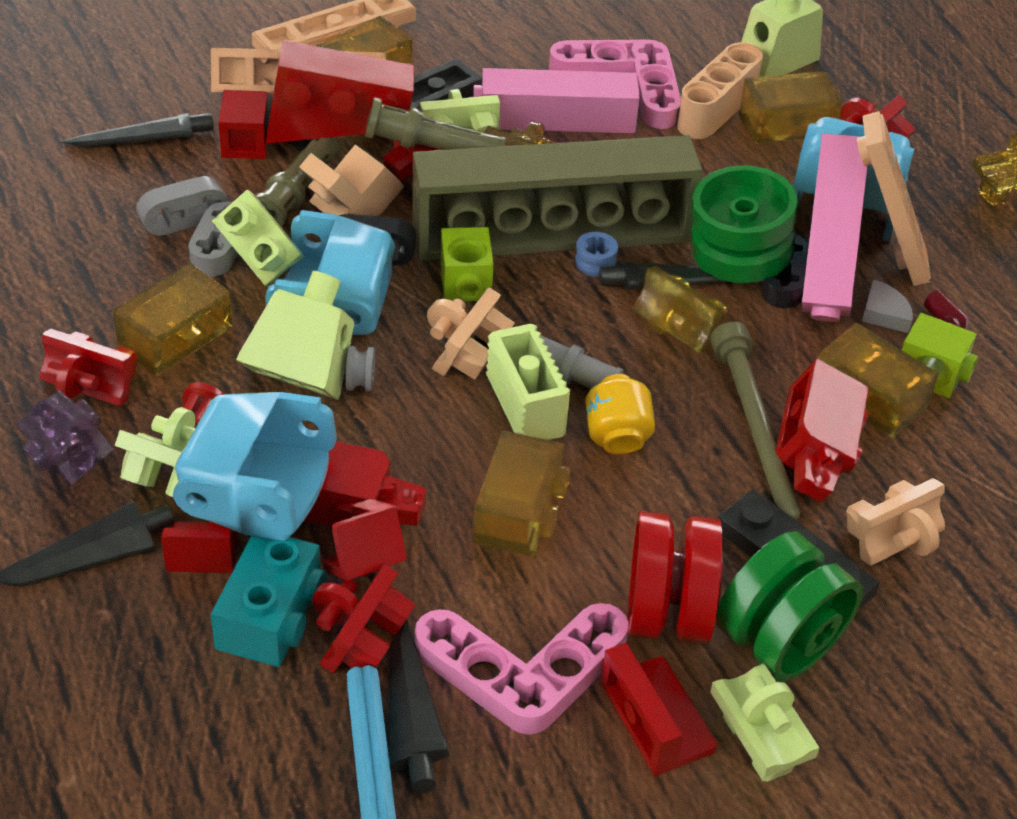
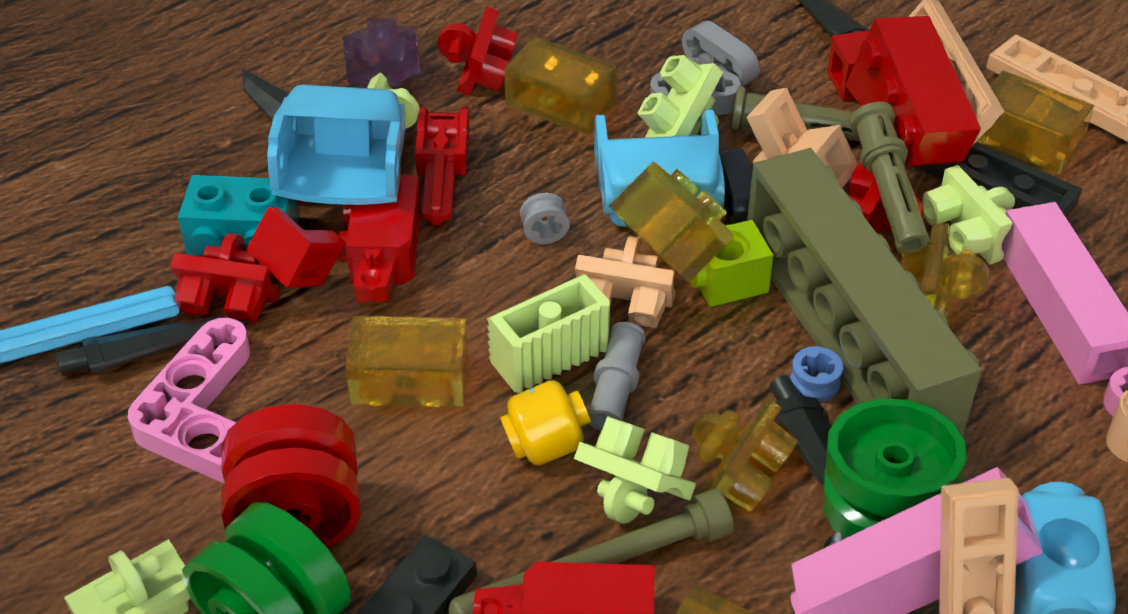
camera: 80 degrees right, 0 degrees up
(302, 338) = (546, 156): yellowish green torso -> none
(439, 265) = (673, 220): none -> clear yellow brick
(655, 710) = (156, 505): red panel -> none
(706, 350) = (659, 470): none -> yellowish green hips

